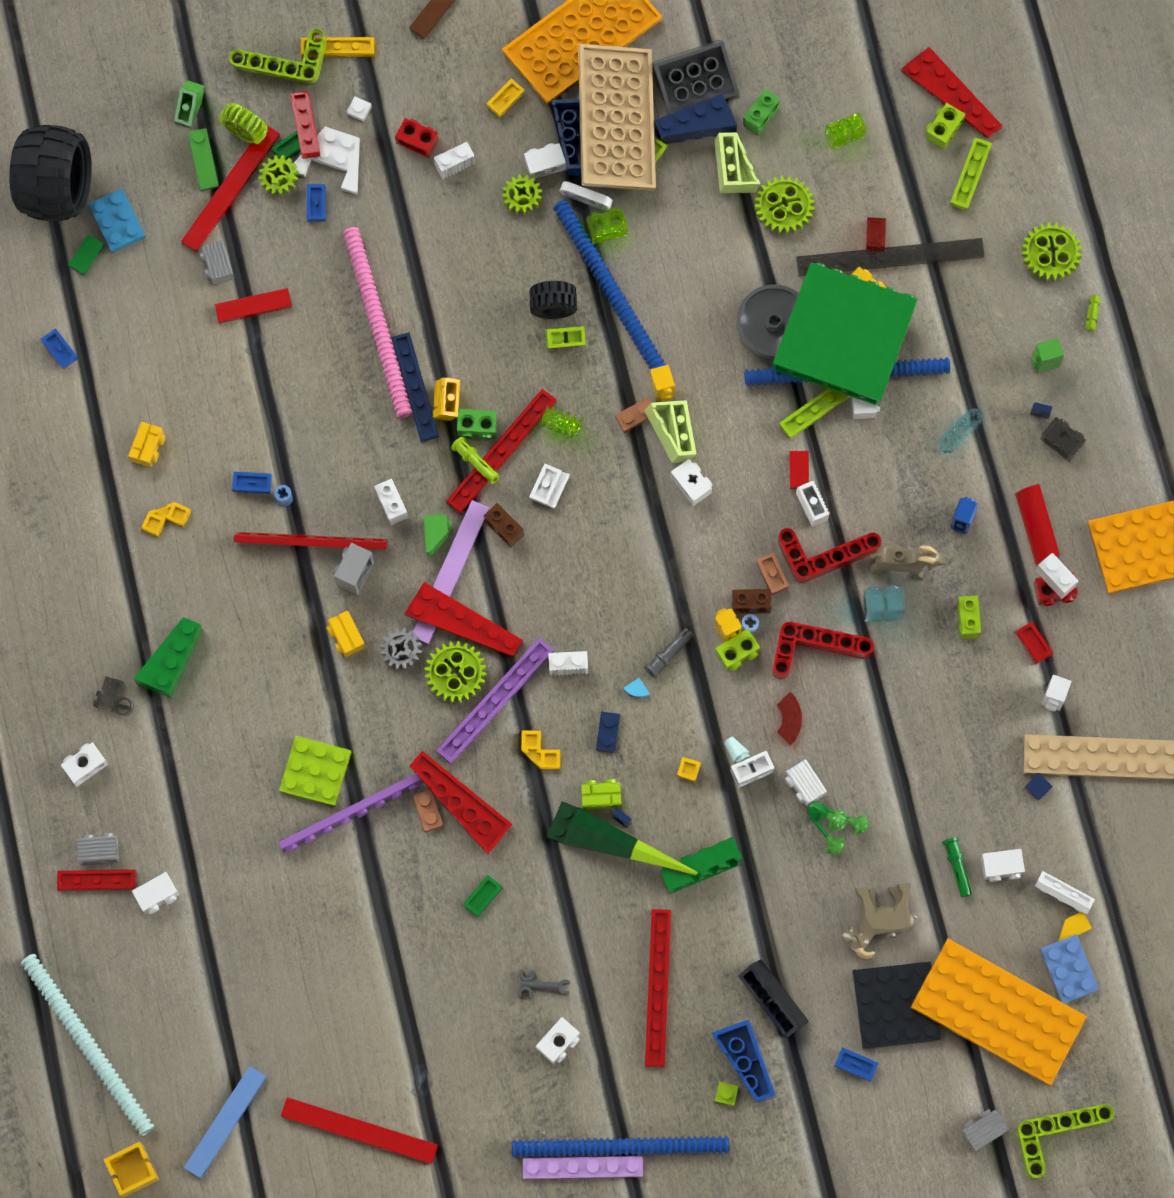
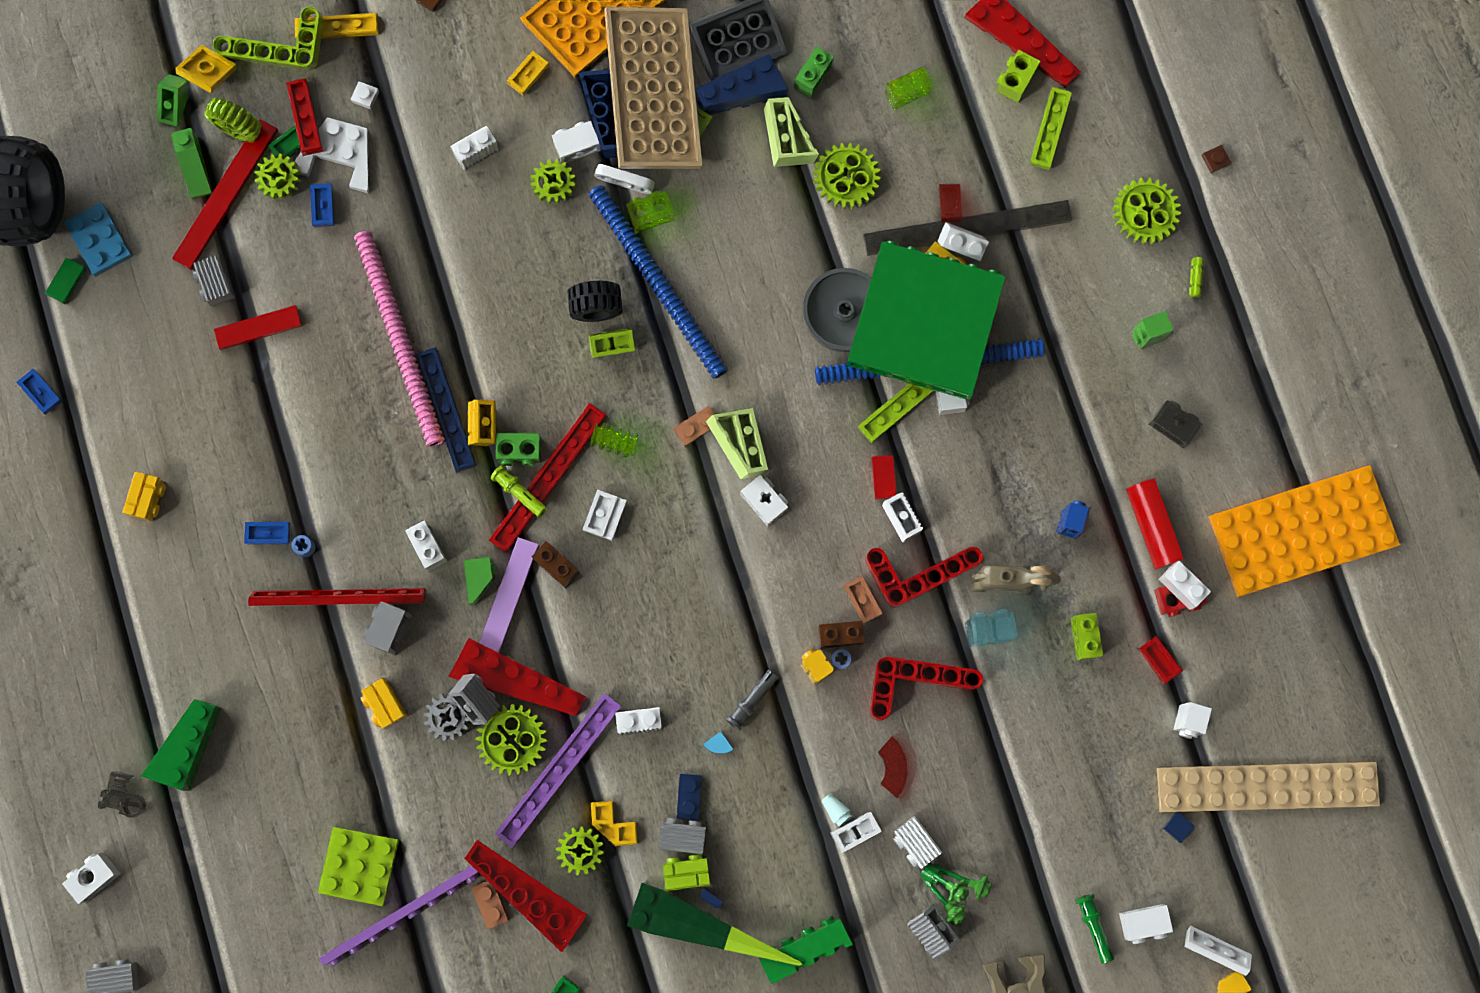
camera: 10 degrees left, 5 degrees up
(157, 518) = (161, 581): yellow tile -> none
(220, 77) = (206, 68): none -> yellow plate
(414, 141) = (428, 128): red brick -> none
(426, 633) = (474, 699): none -> light grey brick
(502, 769) = (579, 861): none -> lime gear
(599, 764) = (682, 837): none -> light grey brick
(662, 383) = (724, 390): yellow brick -> none
(688, 769) = (783, 835): yellow plate -> none
(734, 646) = (826, 688): lime brick -> none
(814, 858) = (933, 932): none -> light grey brick
(883, 268) = (962, 241): none -> white brick
(966, 417) = (1055, 436): clear light blue beam -> none
(1041, 410) = (1148, 392): dark blue tile -> none
(1119, 210) = (1216, 159): none -> copper plate

